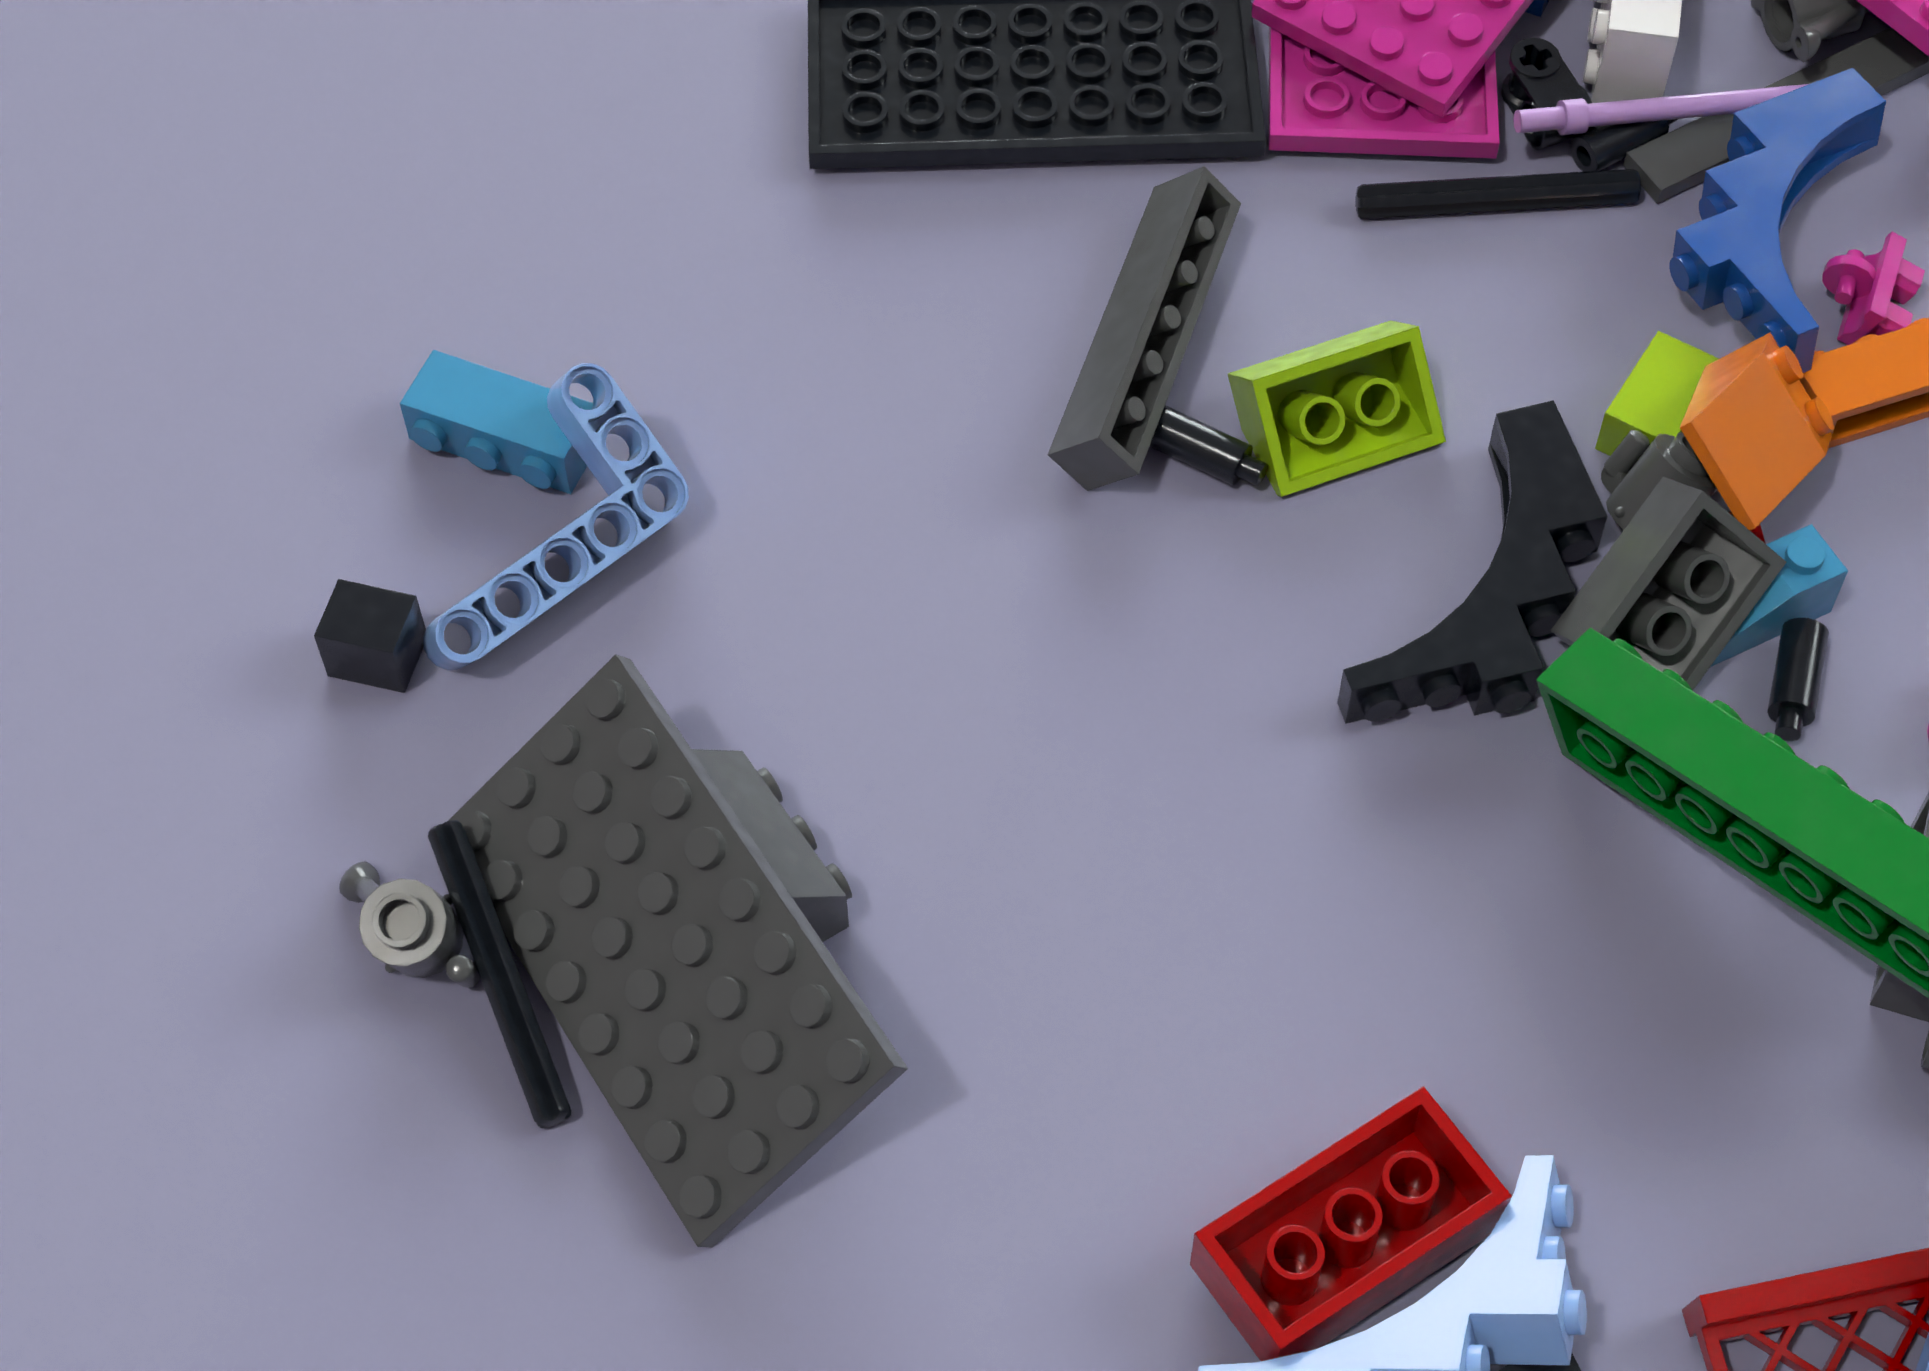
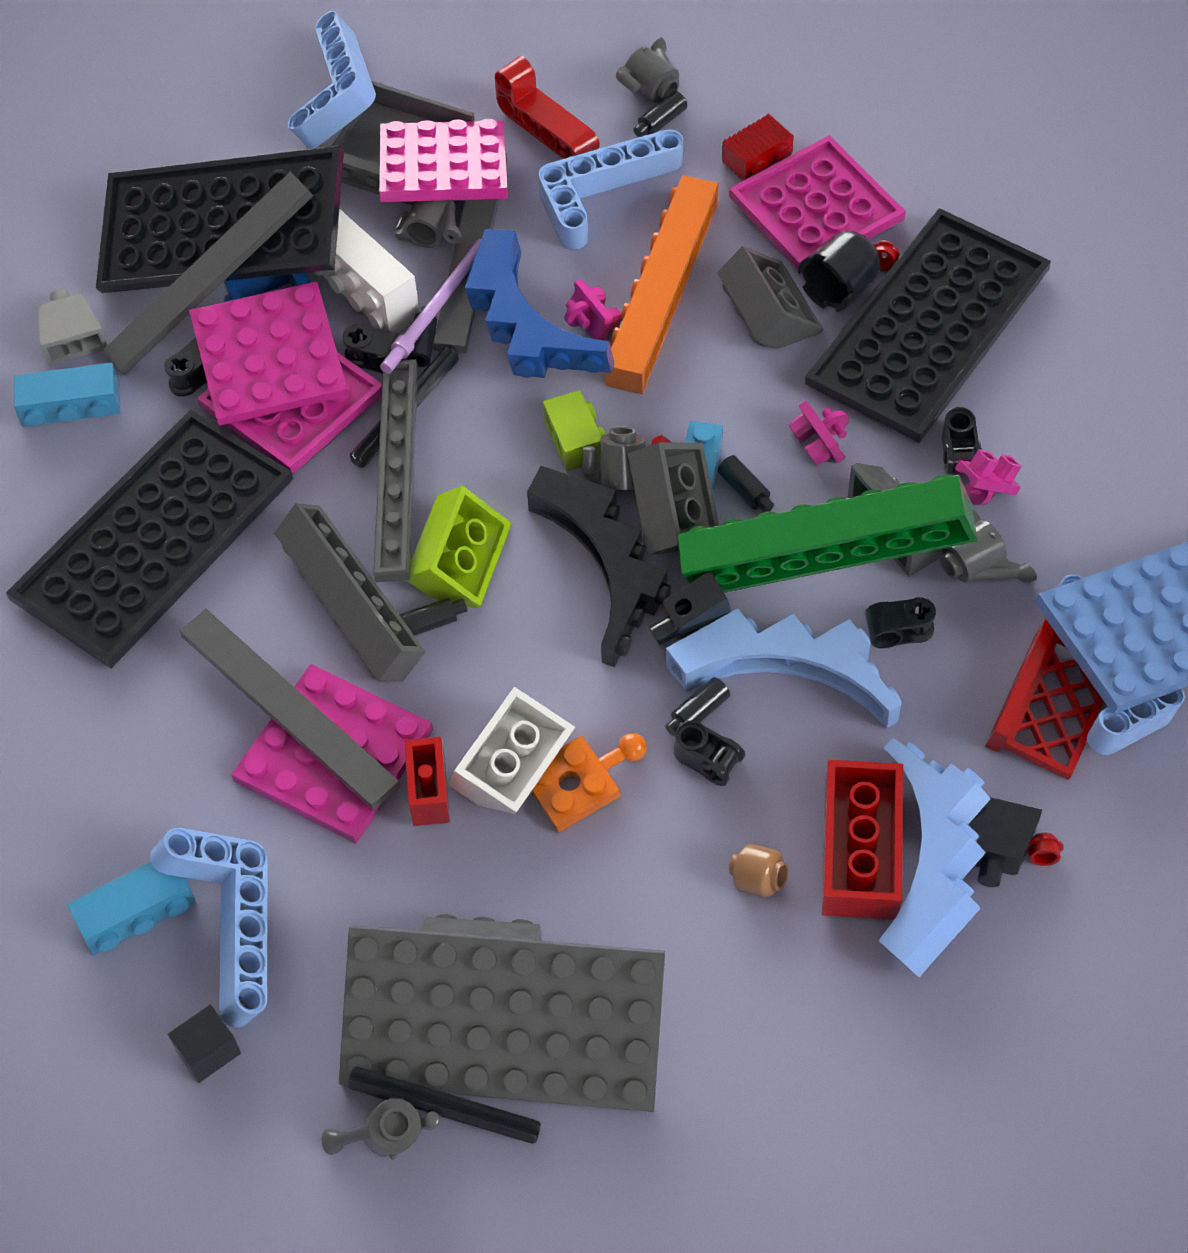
camera: 50 degrees left, 0 degrees up
(909, 487) = (294, 779): none -> dark pink plate
(912, 391) = (290, 709): none -> dark grey tile
(947, 613) = (427, 781): none -> red brick
(1077, 678) = (511, 754): none -> white slope
(1136, 823) = (596, 785): none -> orange plate
(1180, 1126) = (758, 870): none -> medium nougat head
(1311, 936) = (712, 756): none -> black piece
(1373, 867) = (699, 704): none -> black cylinder
(1375, 249) = (396, 474): none -> dark grey tile
(1510, 754) = (691, 609): none -> black torso
(1517, 849) = (788, 647): none -> light blue arch
(1756, 427) = (629, 401): orange slope -> none
(1769, 1038) = (898, 623): none -> black piece

